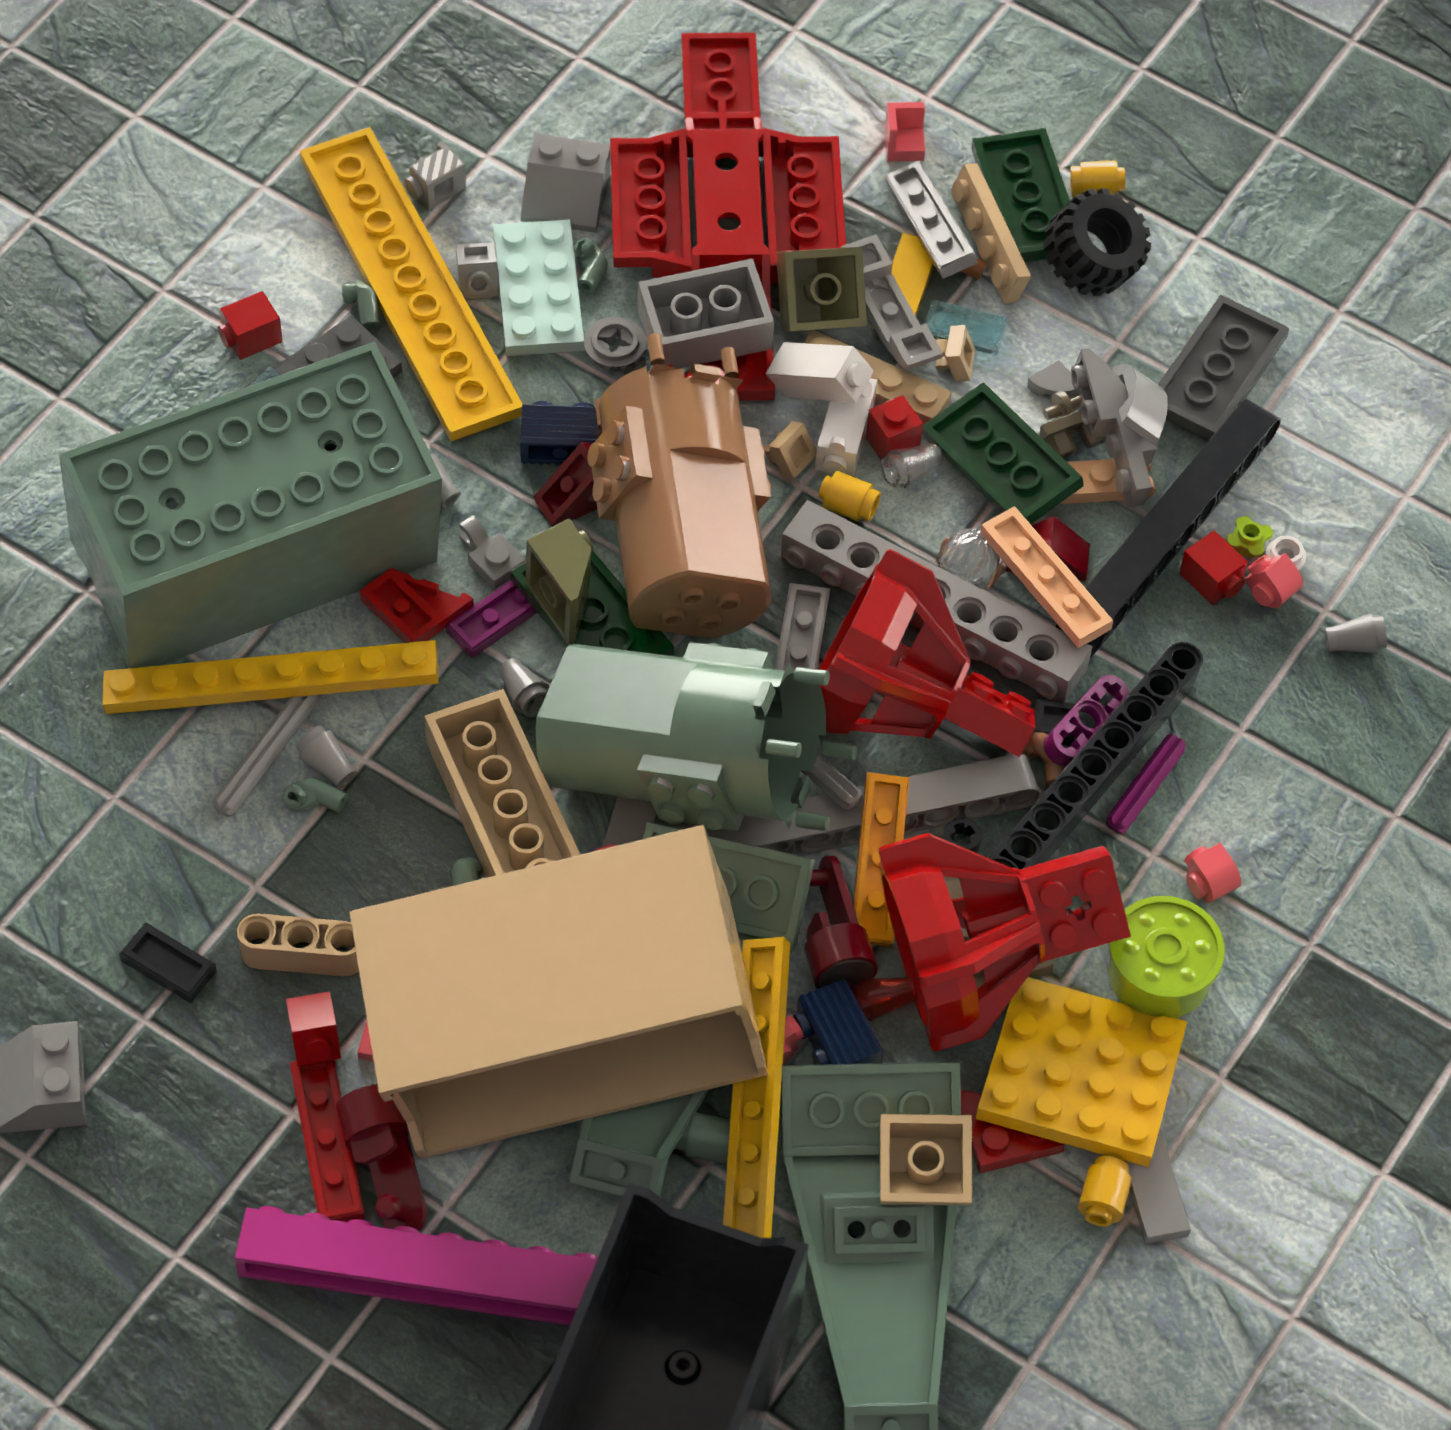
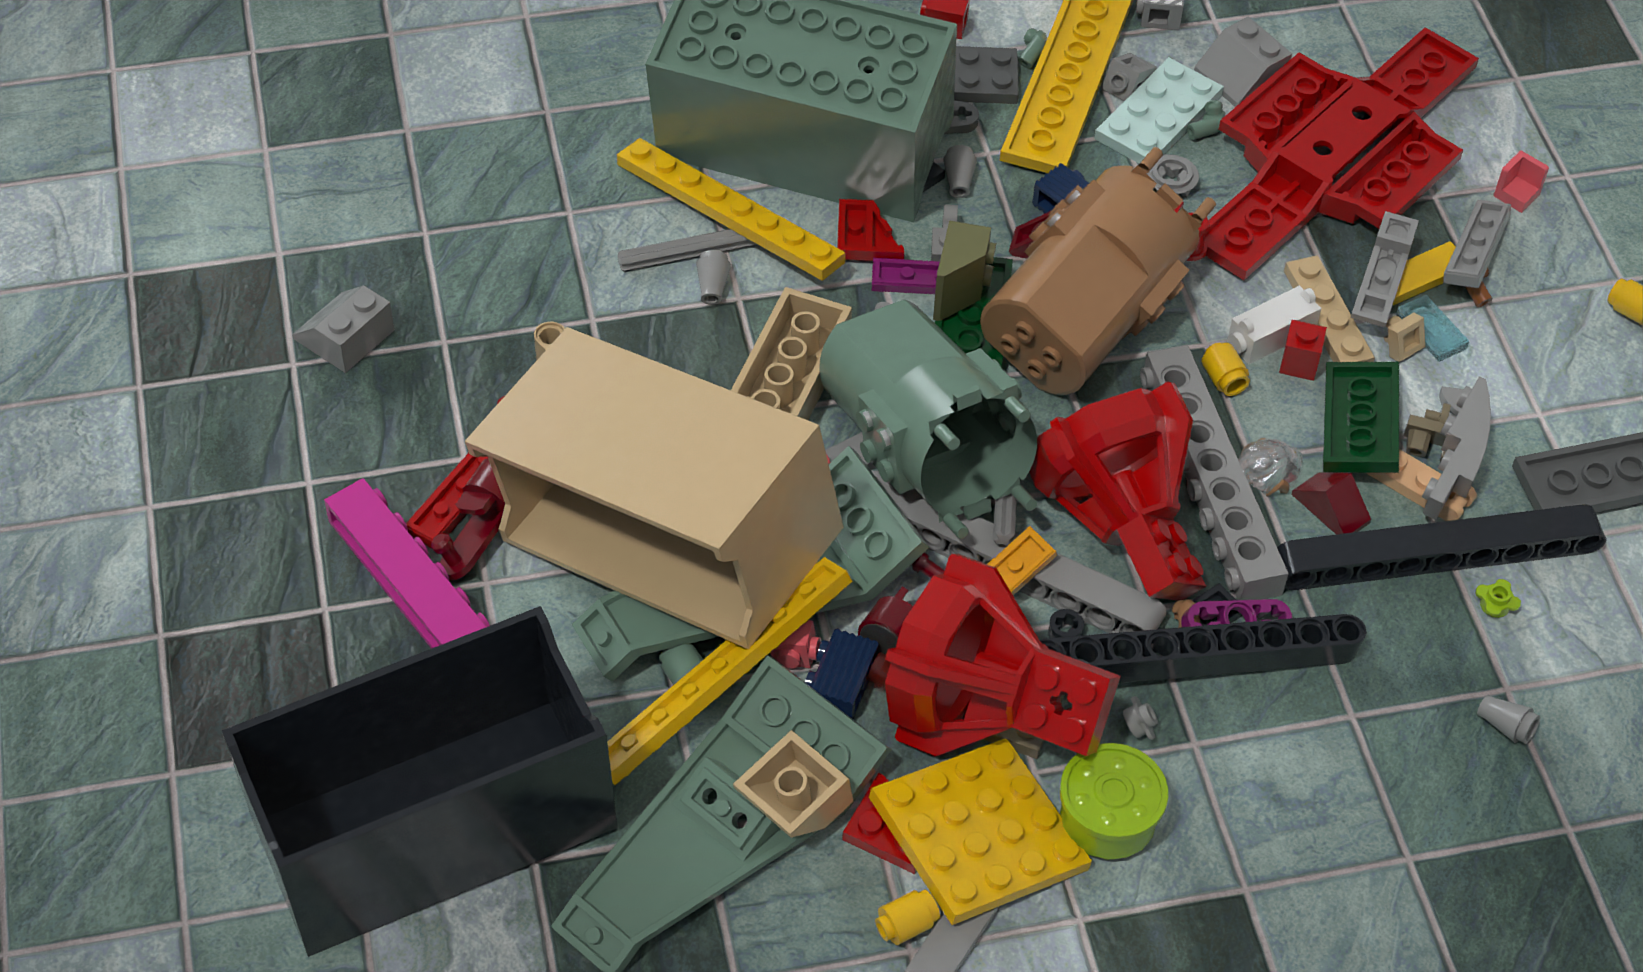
camera: 45 degrees right, 5 degrees down
(168, 962) = (491, 321): black tile -> none
(313, 792) = (682, 291): sand green arm -> none
(707, 312) = (1247, 186): light grey brick -> none
(791, 450) = (1217, 313): tan tile -> none
(821, 289) = (1341, 226): olive slope -> none
(821, 372) = (1282, 275): white brick -> none
(909, 464) = (1293, 379): clear cone -> none
(990, 233) = (1510, 286): tan plate -> none
(1024, 184) = (1570, 278): dark green plate -> none
(1046, 577) = (1300, 505): light nougat plate -> none
(1114, 224) = (1605, 317): black tyre -> none
(1145, 784) = (1238, 693): magenta axle -> none
(1146, 403) = (1490, 442): light grey slope -> none
(1211, 873) = (1217, 782): coral plate -> none
(1213, 568) = (1444, 595): red brick -> none
(1273, 580) = (1481, 635): coral plate -> none
(1291, 547) = (1513, 621): white plate -> none

